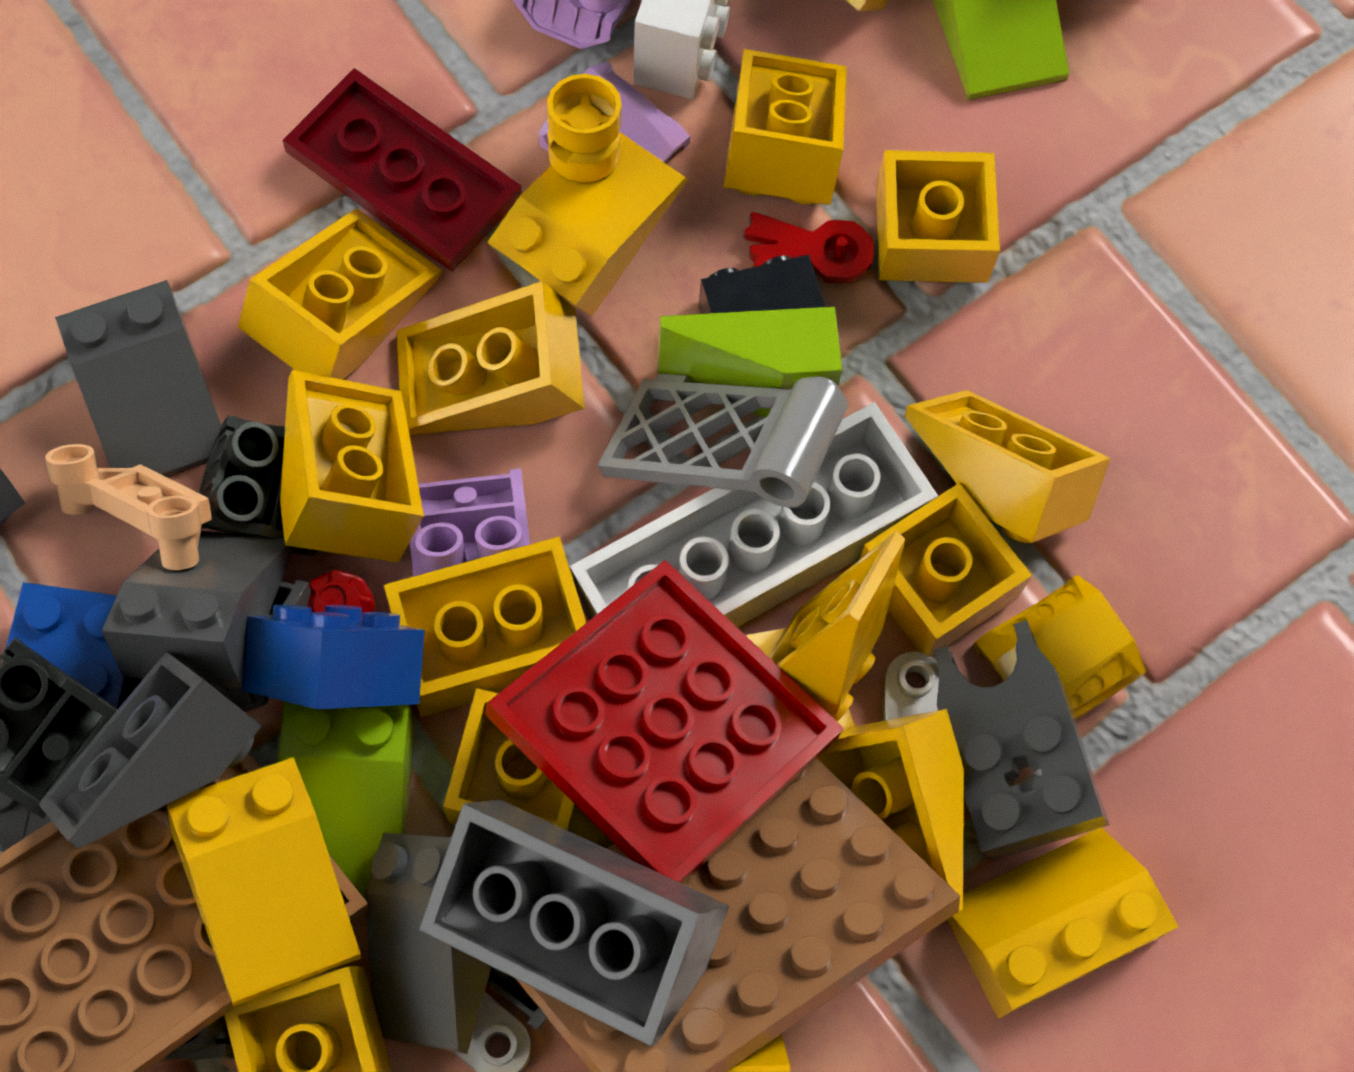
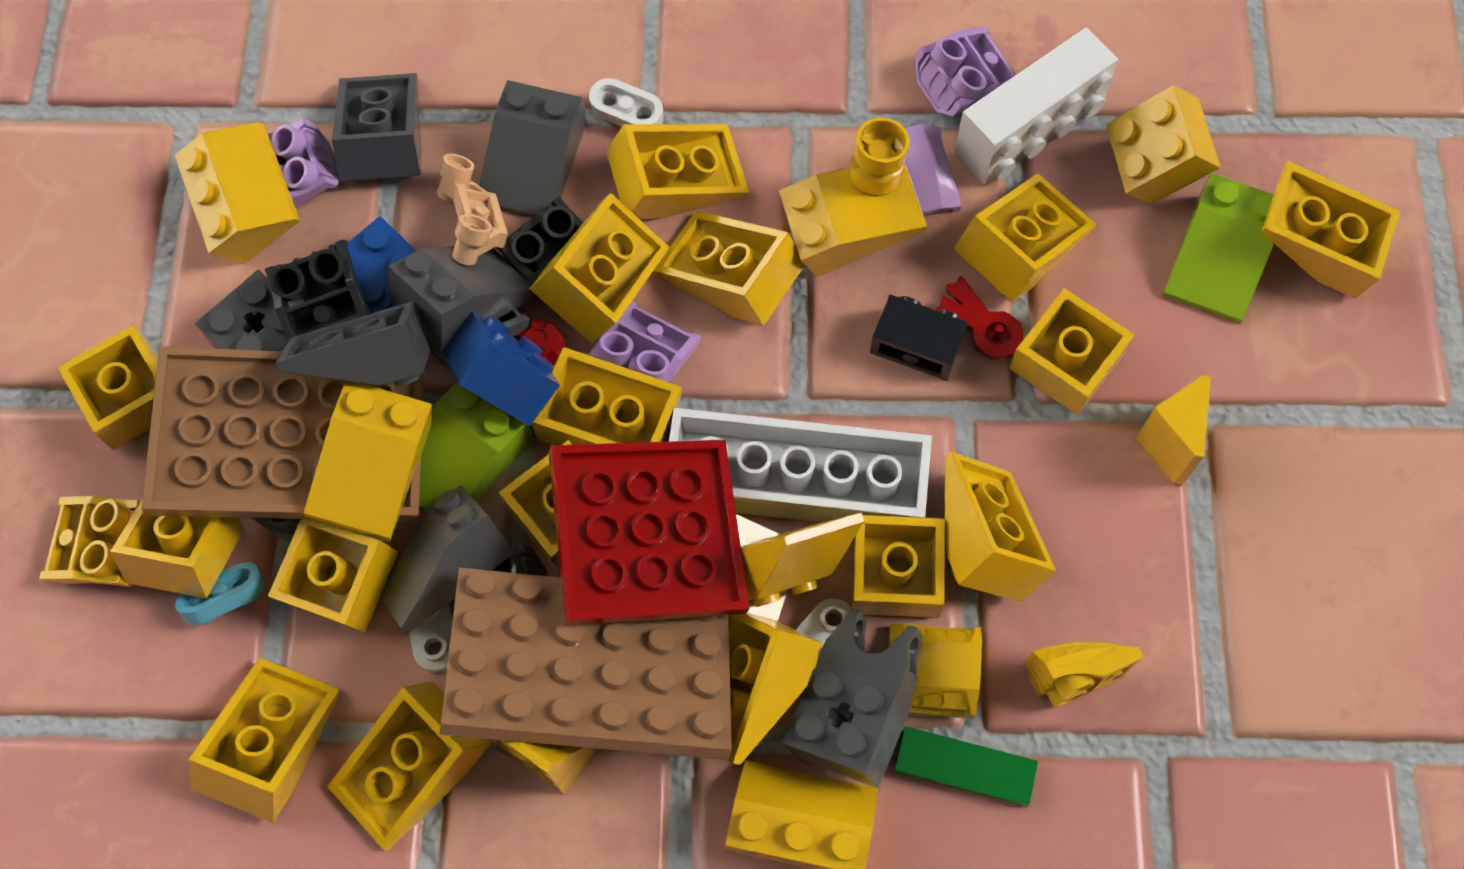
camera: 45 degrees right, 0 degrees up
(219, 257) = (629, 104): none -> white plate
(402, 169) = (770, 117): dark red plate -> none
(572, 918) = (500, 595): dark grey slope -> none
(751, 347) = (888, 366): lime slope -> none
(783, 446) = (849, 422): light grey piece -> none
(1115, 227) = (1177, 430): none -> yellow slope
(1171, 735) = (966, 766): none -> green tile
(1211, 546) = (1078, 668): none -> yellow slope

